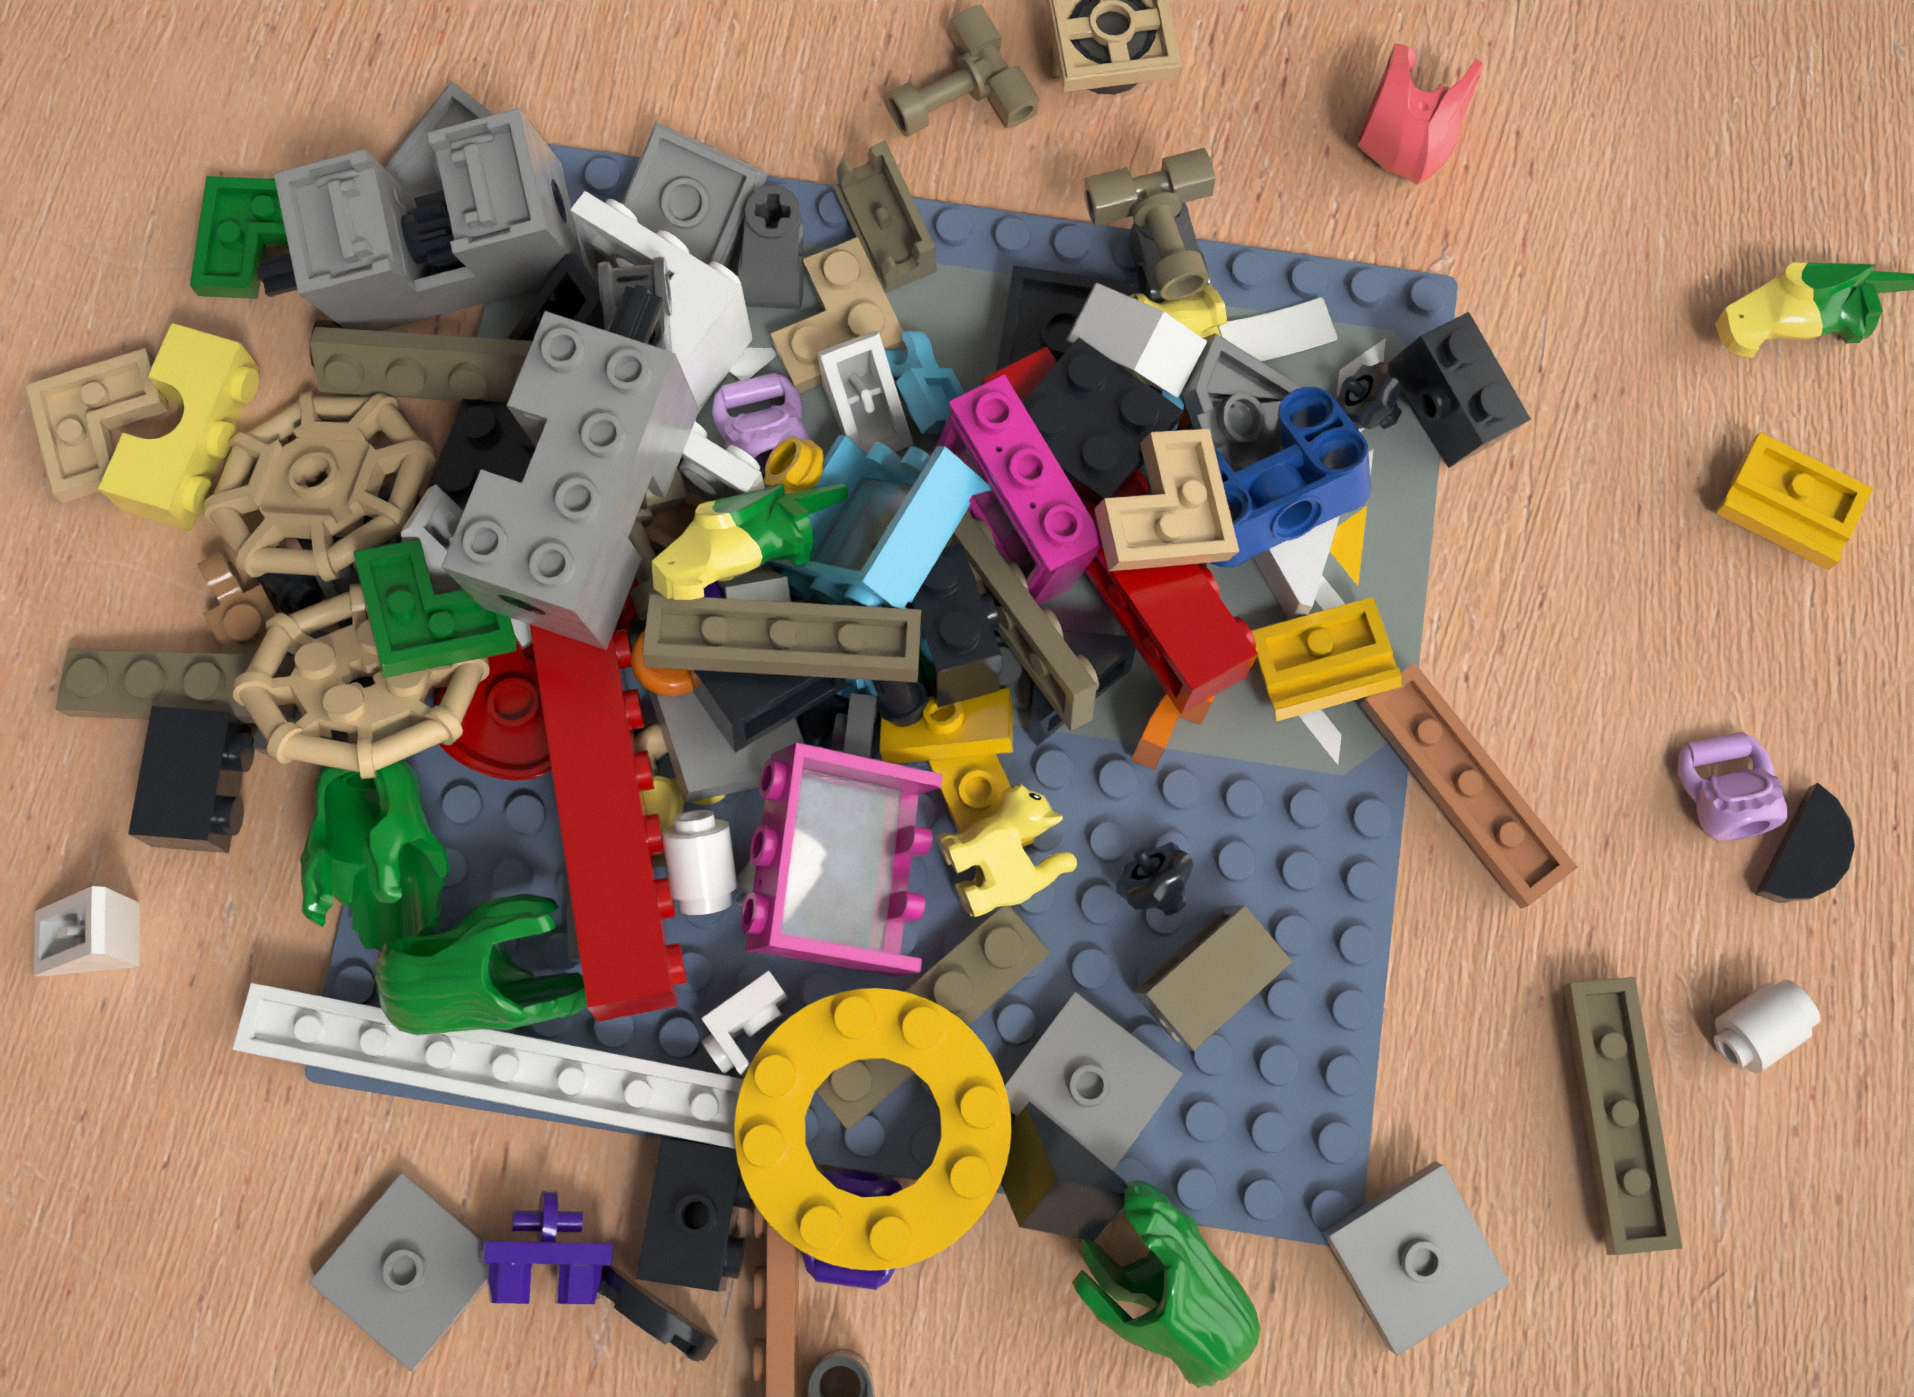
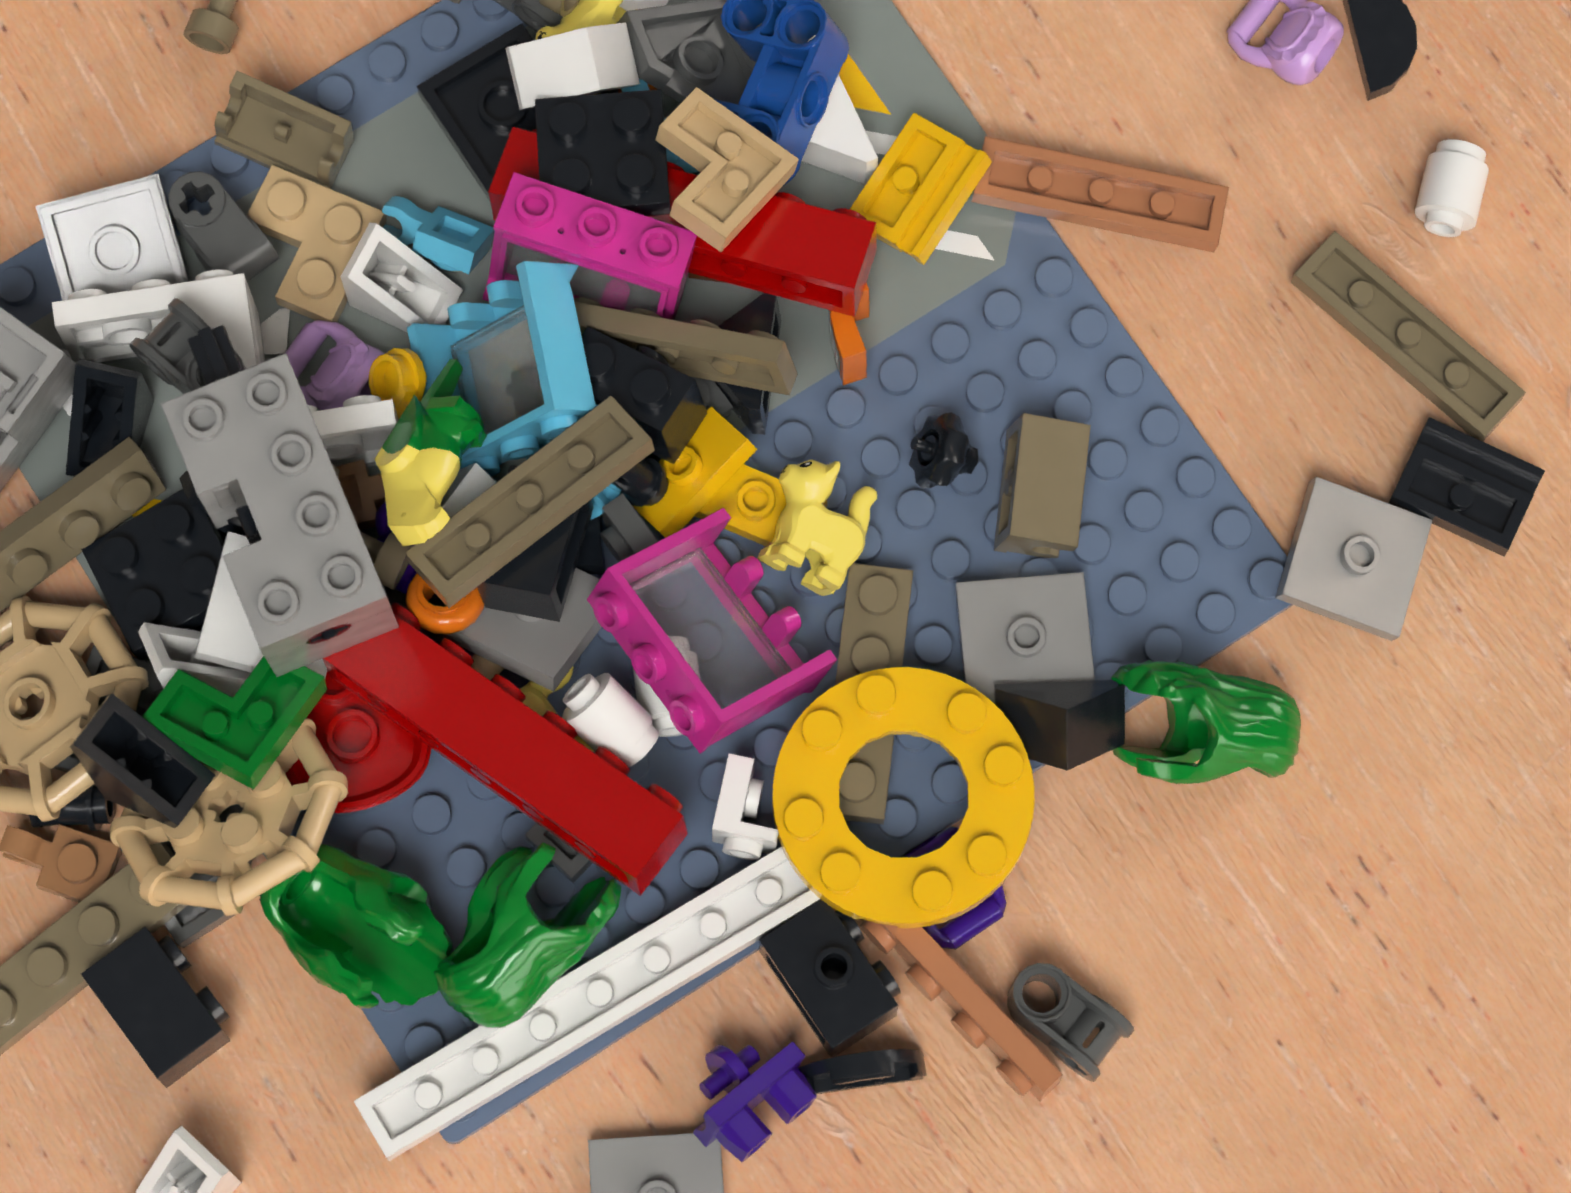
camera: 40 degrees left, 0 degrees up
(324, 584) = (139, 764): none -> black slope
(1564, 1282) = (1467, 486): none -> black plate

